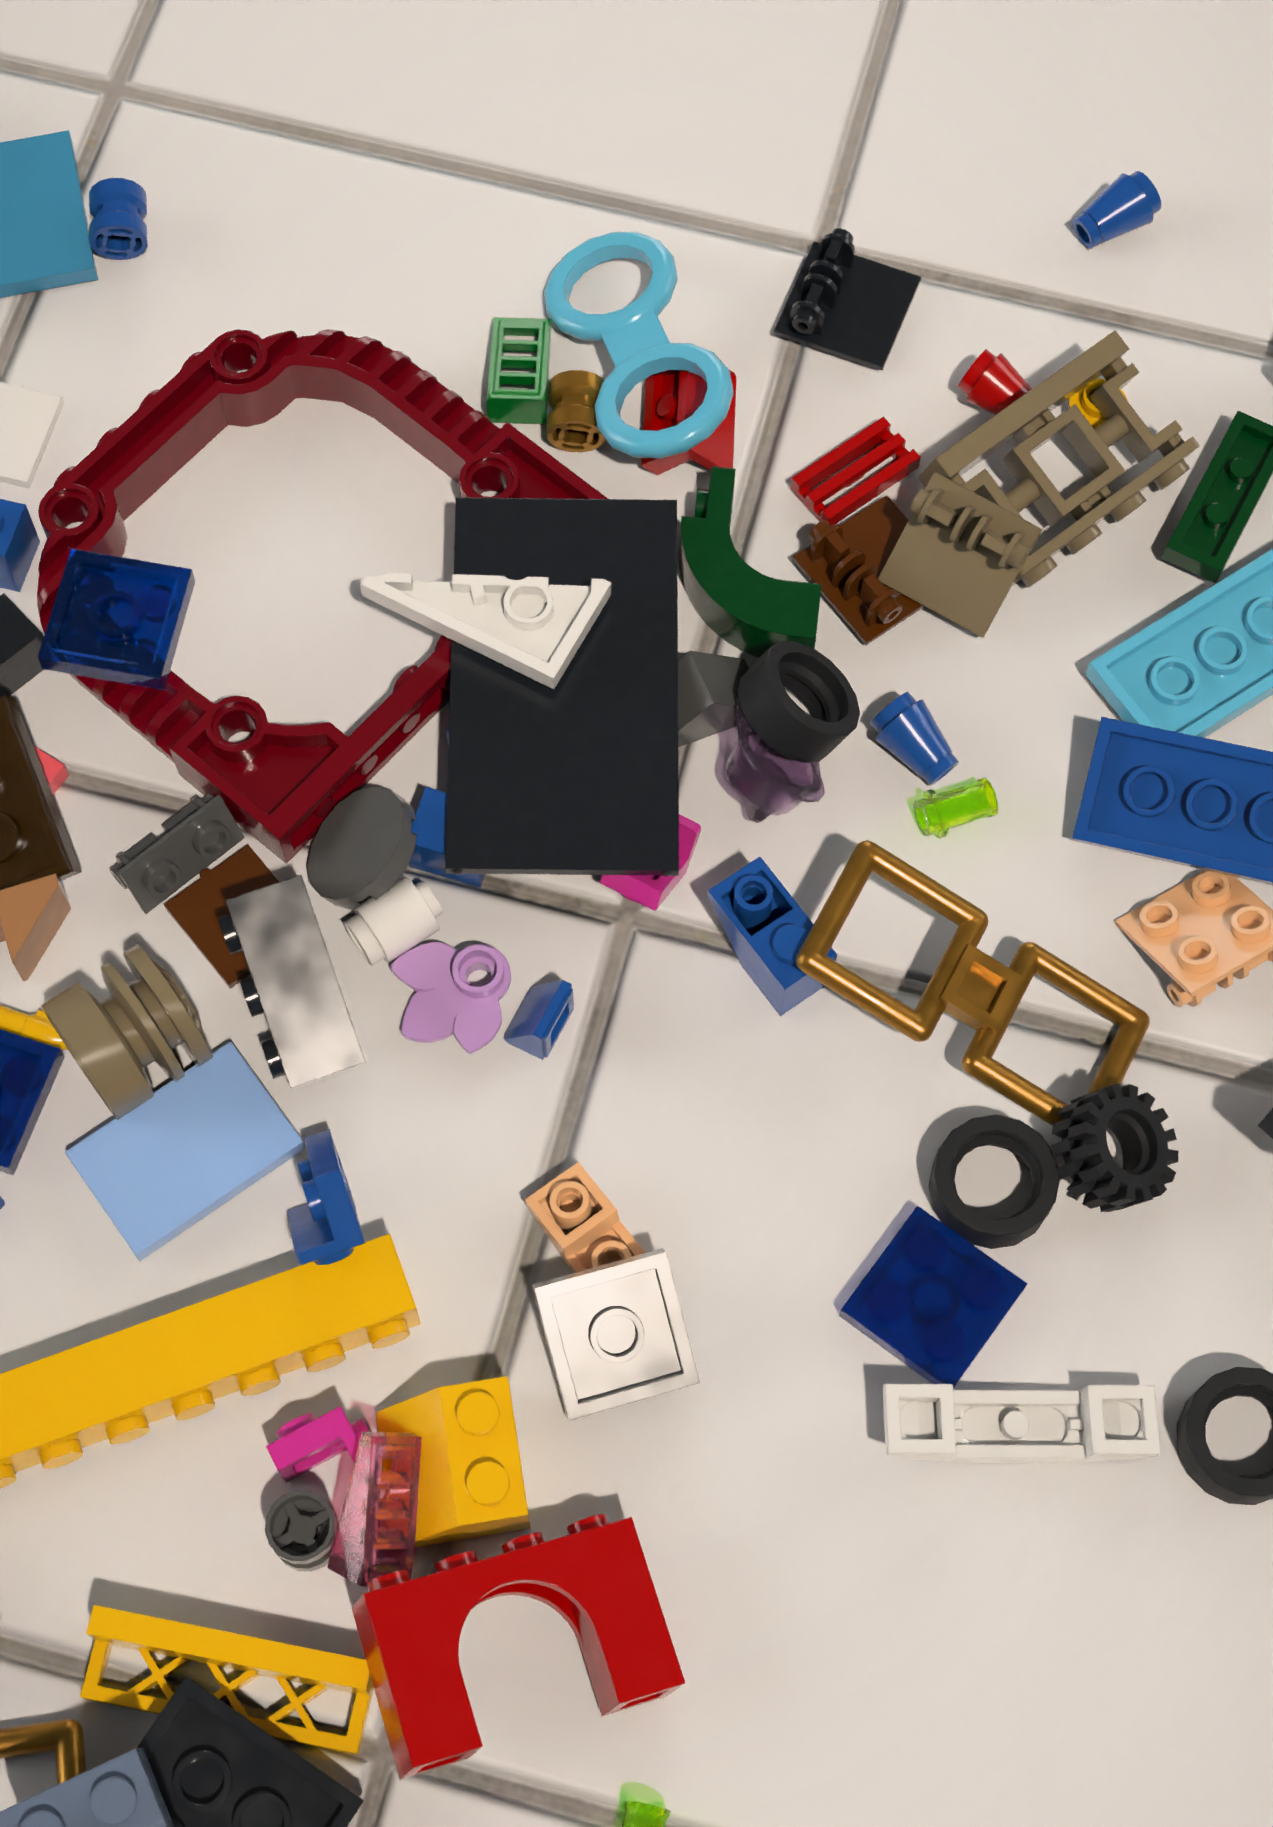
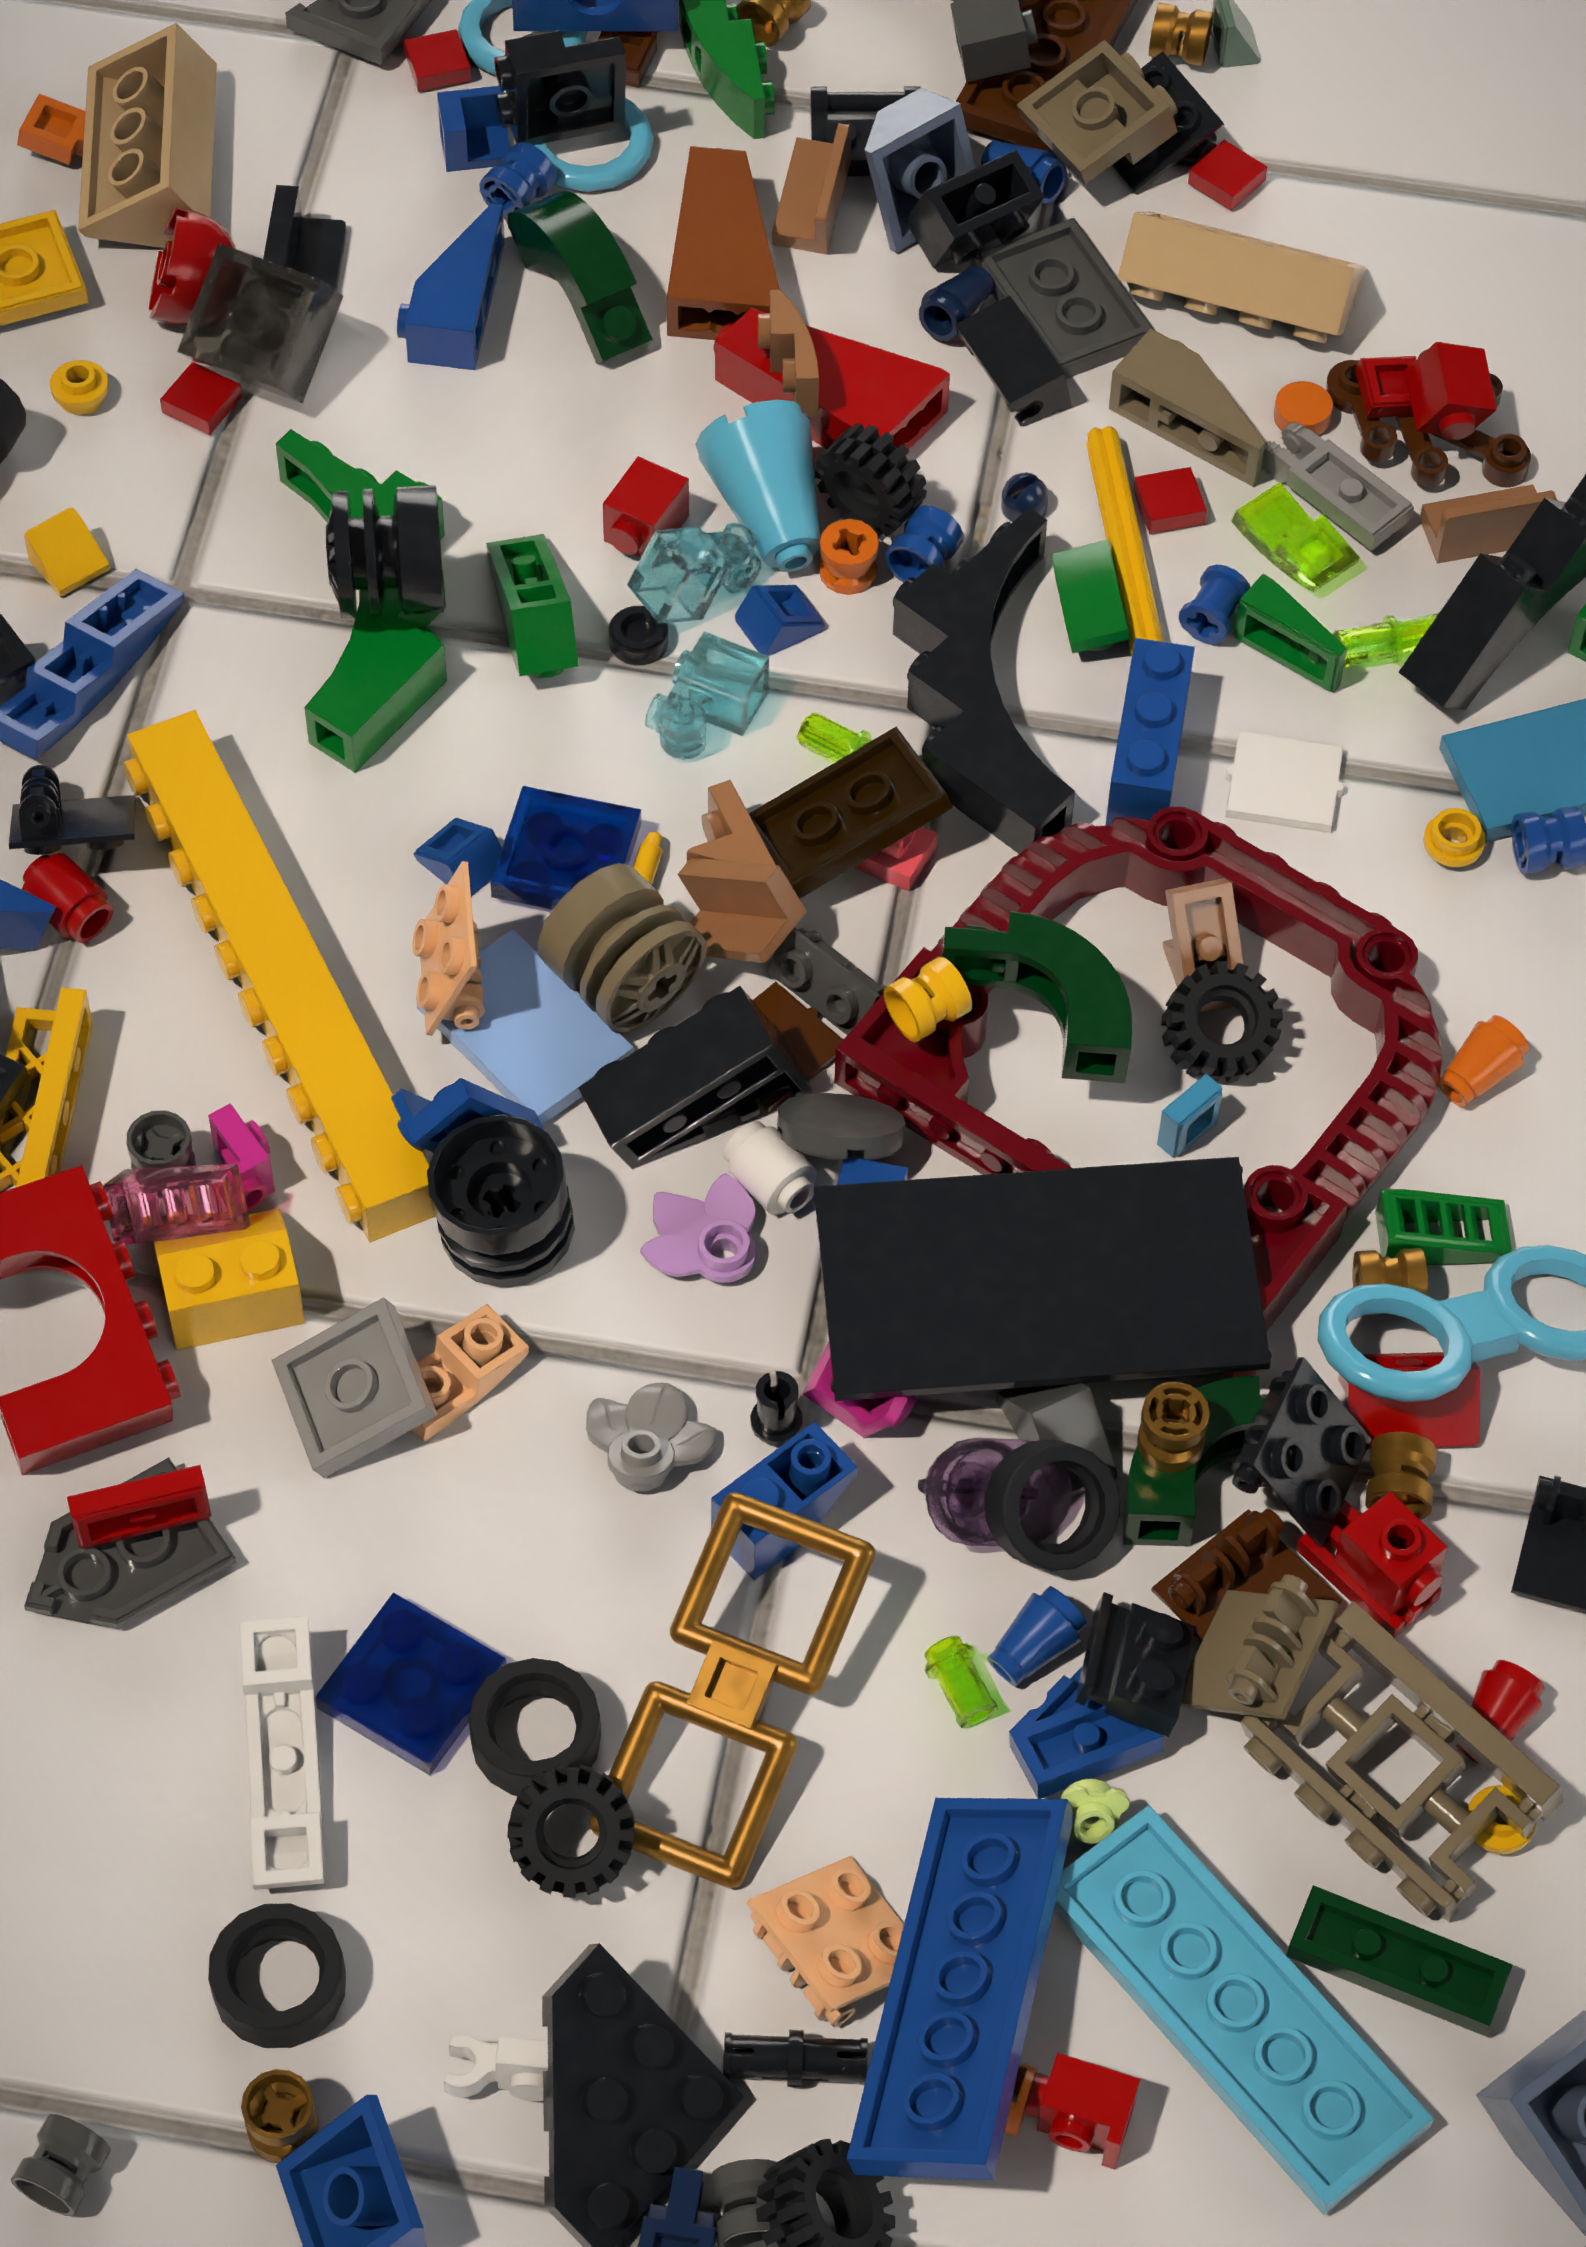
camera: 85 degrees right, 10 degrees down
(92, 285) = (1459, 826): none -> yellow plate
(93, 919) = (741, 907): none -> medium nougat panel
(112, 1201) = (450, 958): none -> light nougat hinge
(117, 619) = (1049, 872): clear blue plate -> none
(196, 511) = (1202, 930): none -> medium nougat slope
(247, 607) = (1064, 976): none -> dark green arch
(252, 742) = (928, 999): none -> yellow wheel
(293, 480) = (1246, 996): none -> black tyre
(347, 304) = (1485, 1058): none -> orange cone
(379, 543) = (1189, 1116): none -> dark azure tile
(407, 1135) = (501, 1200): none -> black wheel
(507, 620) = (1088, 1212): white wing -> none
(541, 1018) = (680, 1313): blue slope -> none
(668, 1058) = (647, 1435): none -> light grey plate
(670, 937) = (776, 1414): none -> black pin
(743, 594) = (1174, 1442): none -> pearl gold wheel
(750, 1554) = (139, 1507): none -> red tile
(751, 467) = (1302, 1450): none -> black hinge
(774, 1579) = (126, 1576): none -> dark grey tile
(775, 429) = (1403, 1466): none -> pearl gold wheel
(865, 438) = (1392, 1555): none -> red brick
(956, 656) = (1136, 1664): none -> black plate
(1002, 709) = (1075, 1741): none -> blue wing
(1088, 707) = (1095, 1809): none -> yellowish green plate

